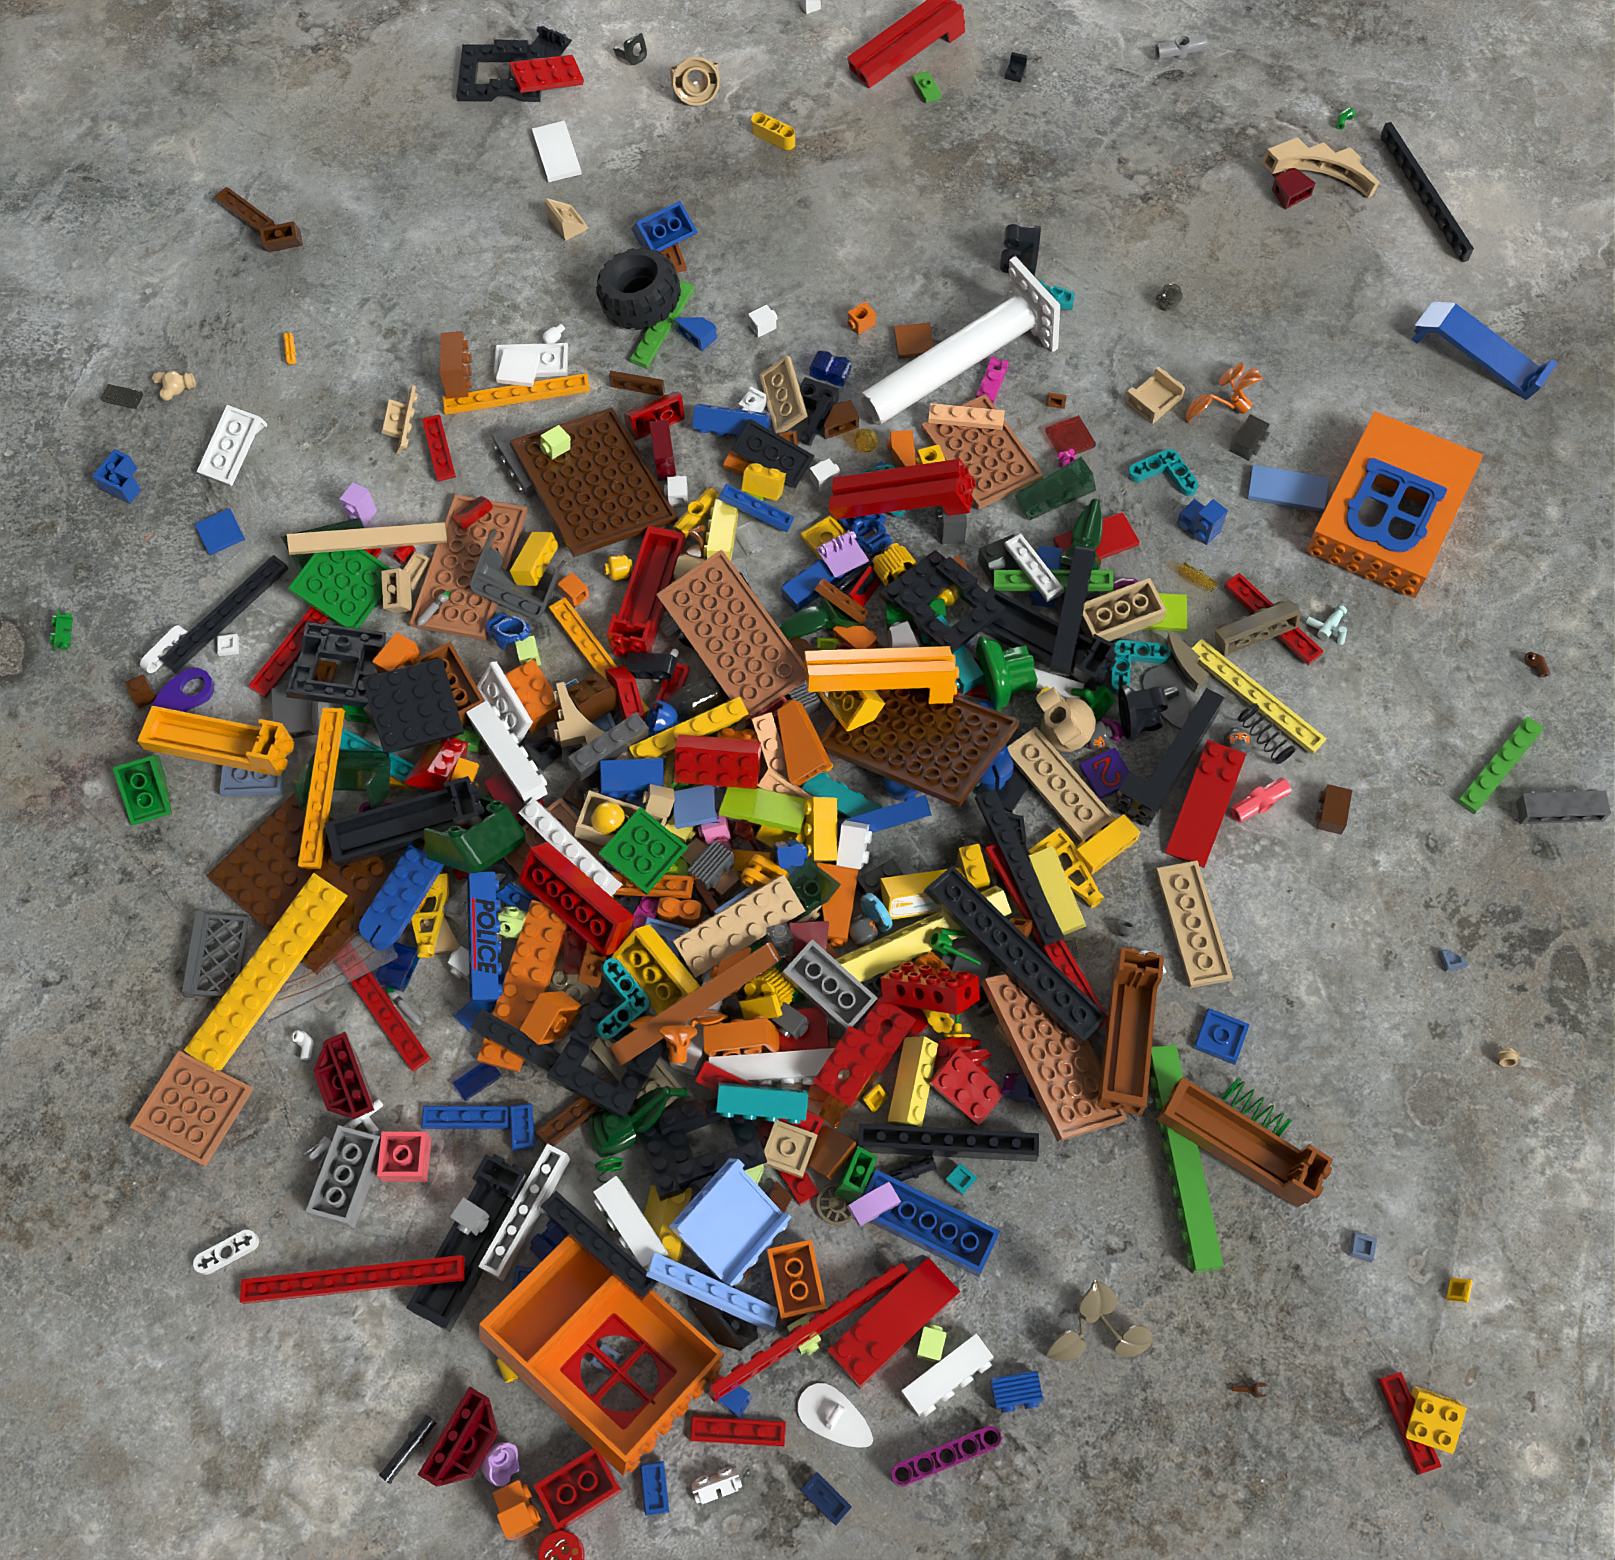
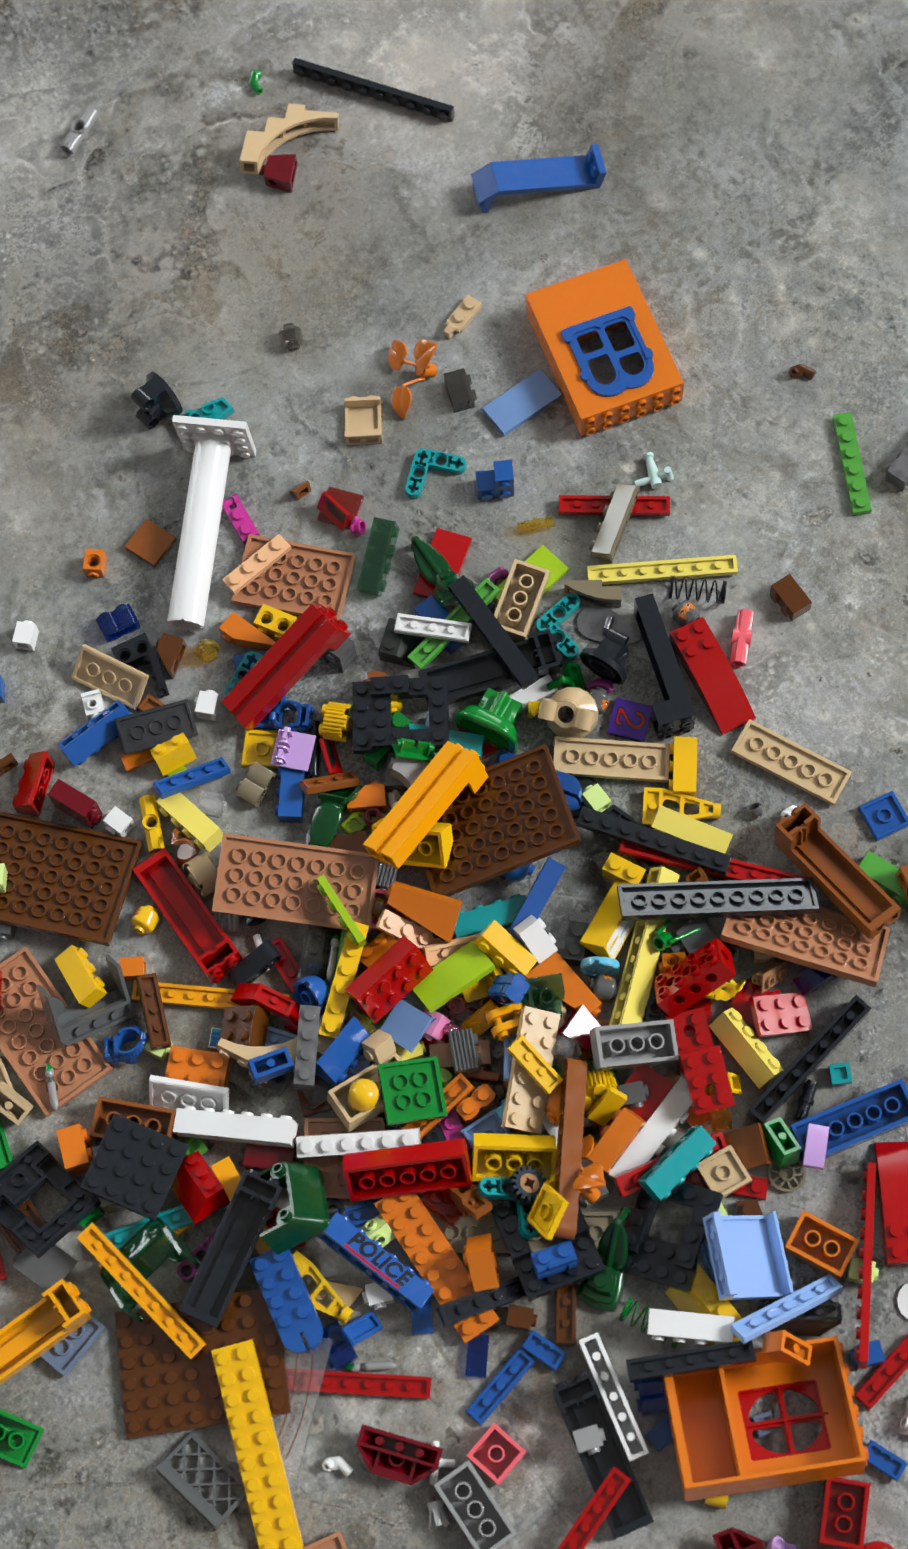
camera: 45 degrees left, 5 degrees up
(425, 972) = (360, 1329): none -> blue tile
(533, 1086) = (521, 1318): none -> reddish brown brick
(543, 752) = (253, 1099): black slope -> none
(549, 626) = (153, 1011): none -> reddish brown tile
(569, 730) = (270, 1065): none -> blue brick
(593, 1066) = (554, 1259): none -> blue brick
(625, 1025) = (547, 1211): none -> yellow tile
(631, 999) = (522, 1191): none -> black wheel
(673, 1317) = (786, 1348): none -> orange slope
(714, 704) = (333, 957): none -> light grey piece
(739, 676) = (344, 918): none -> lime plate
(741, 920) = (534, 1064): none -> yellow plate
(770, 706) = (377, 907): none -> dark brown tile
(793, 554) = (256, 784): none -> dark tan brick
(913, 623) = (405, 749): none -> green hinge
(992, 1053) = (770, 975): none -> medium nougat hinge
(1013, 798) = (596, 798): none -> yellowish green brick
(1061, 432) = (334, 511): none -> red slope
(1312, 393) = (462, 316): none -> tan hinge

